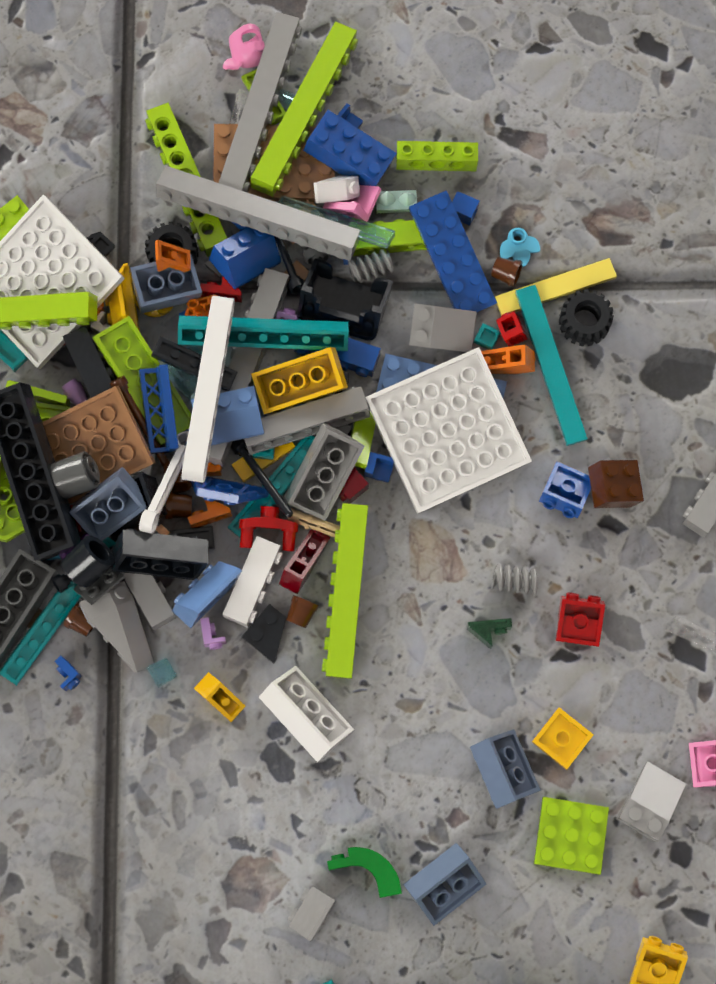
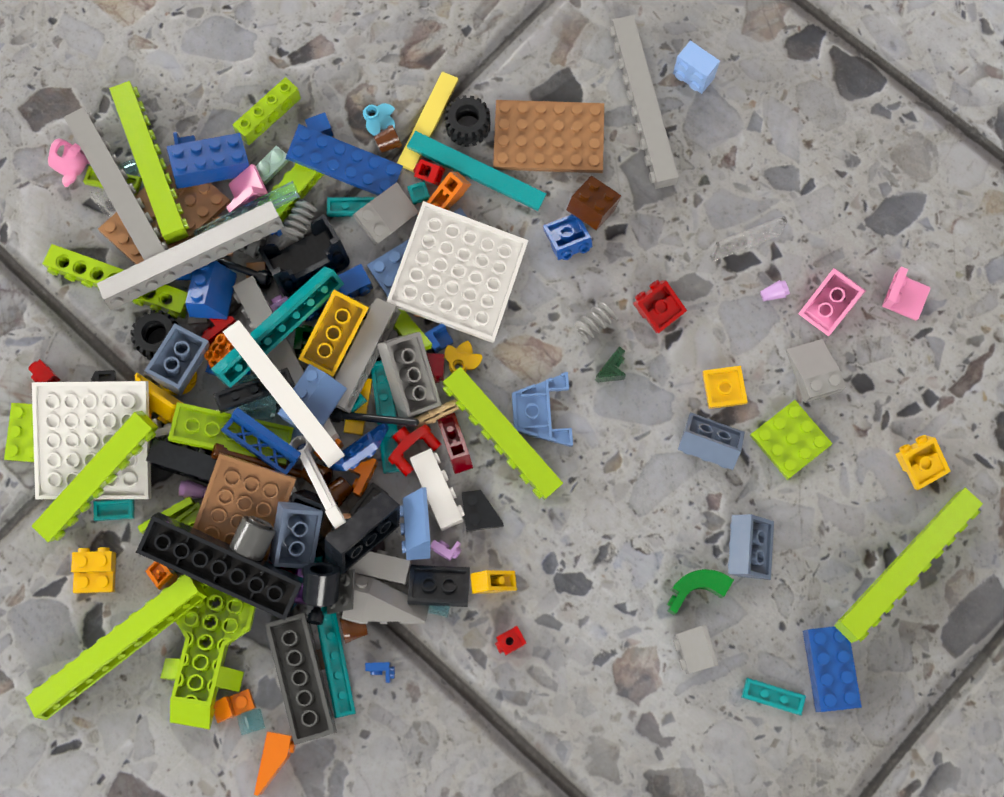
camera: 45 degrees left, 0 degrees up
(62, 196) = (42, 372): none -> red brick
(171, 256) = (165, 336): orange slope -> none
(175, 656) = (439, 585): none -> black plate
(189, 761) = (517, 637): none -> red brick
(275, 358) = (301, 337): none -> dark green bracket
(301, 611) = (487, 476): reddish brown piece -> none
(306, 713) = (558, 535): white slope -> none
(337, 189) = (226, 191): white slope -> none
(383, 499) = (462, 355): none -> yellow plate
(391, 599) = (533, 411): none -> medium blue wing
(419, 291) = (345, 205): none -> teal tile
(640, 395) = (549, 136): none -> medium nougat plate
(688, 705) = (775, 291): none -> lavender cone

